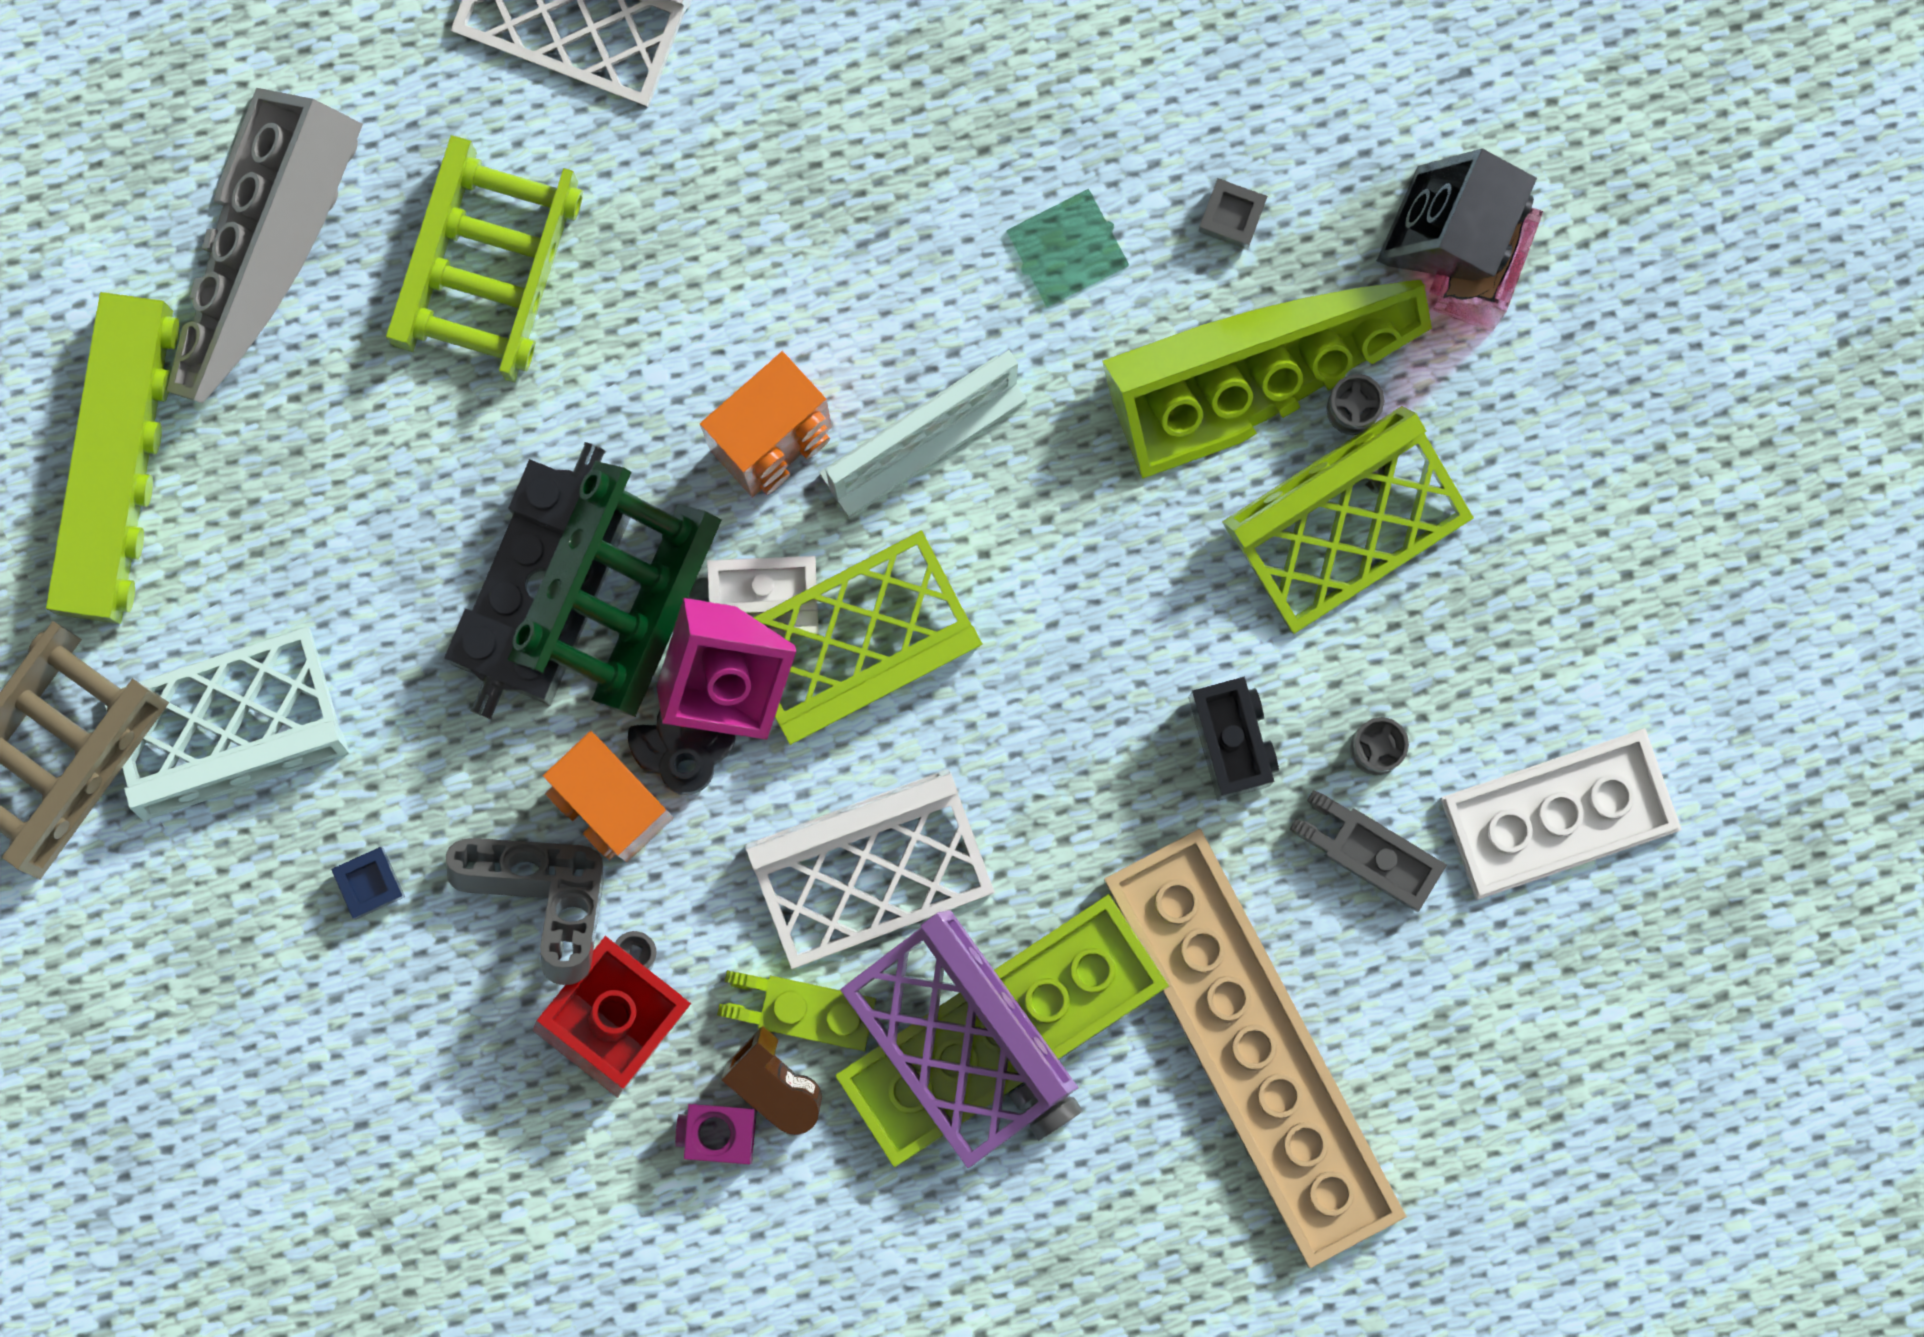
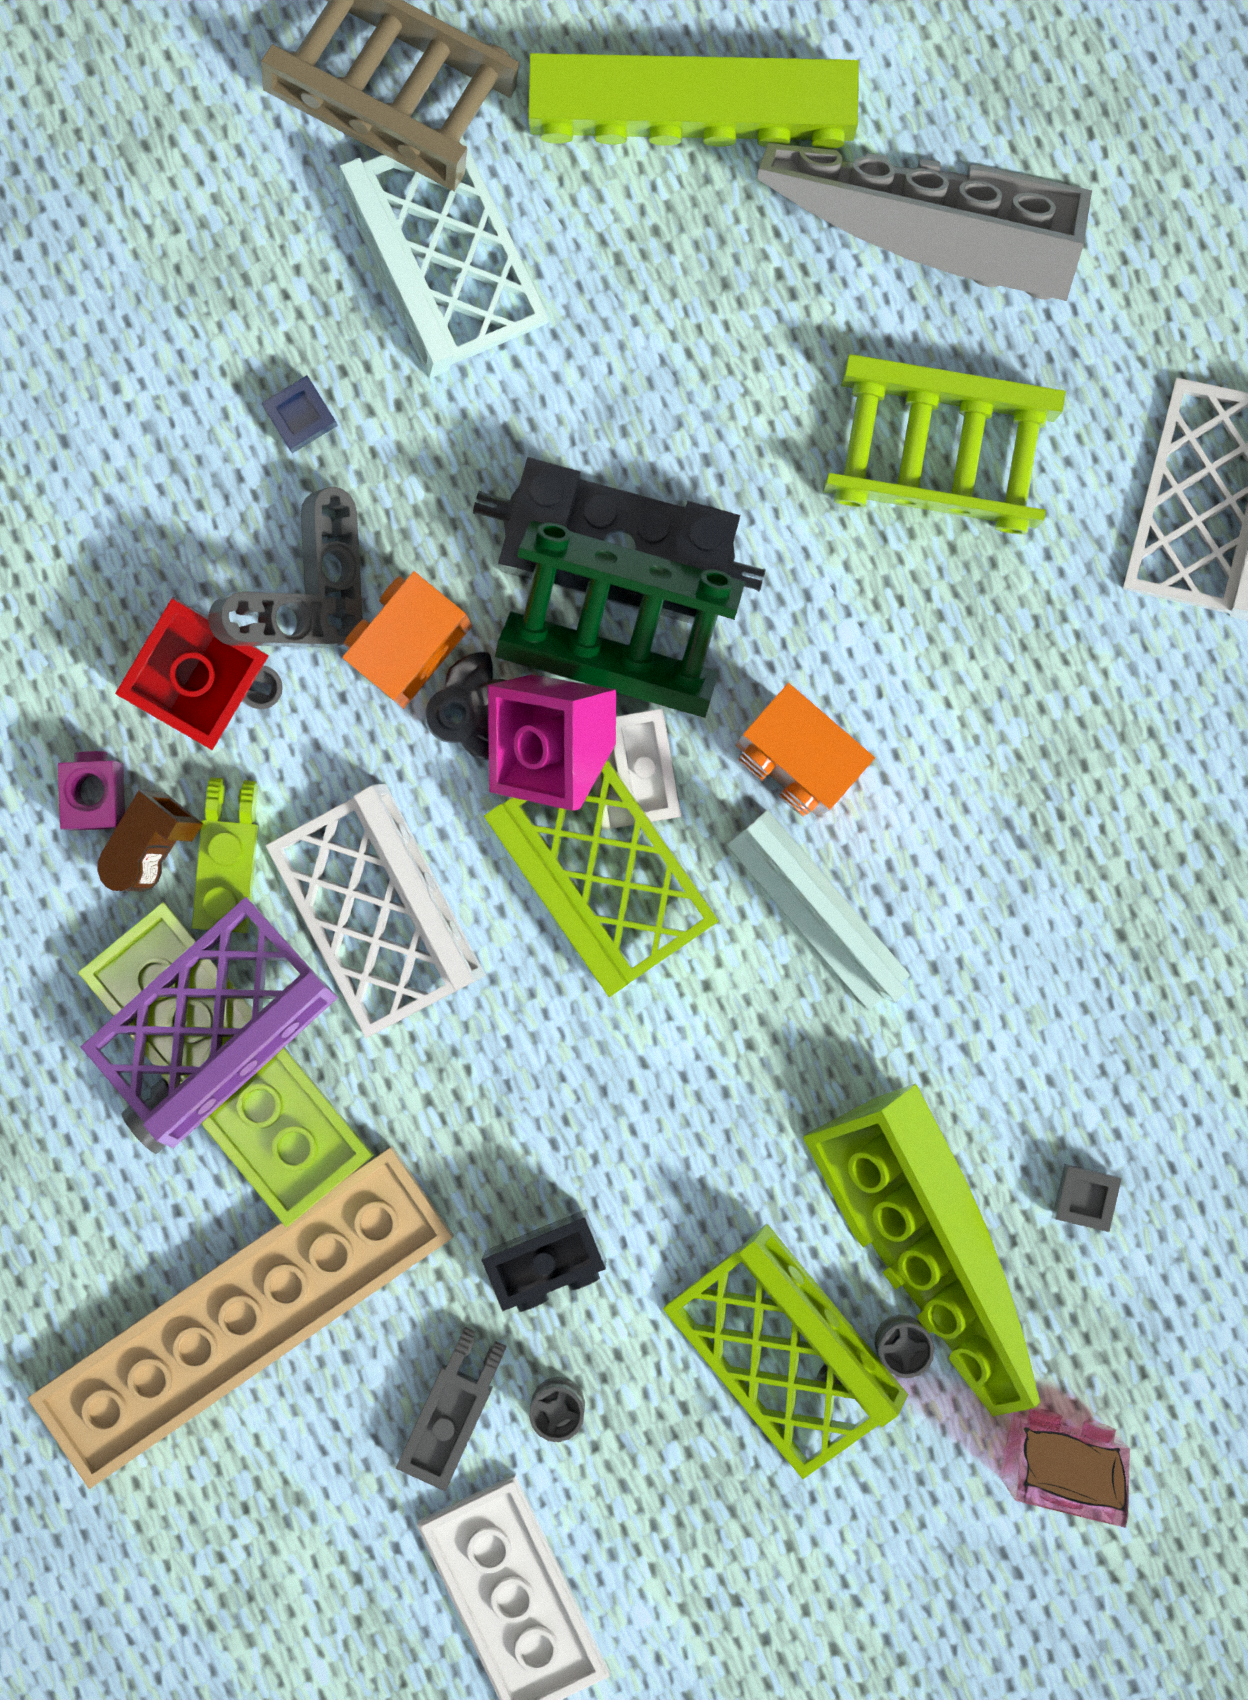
camera: 85 degrees right, 5 degrees up
(1067, 248) = (1030, 1032): clear green piece -> none
(1459, 217) = (1110, 1437): black slope -> none

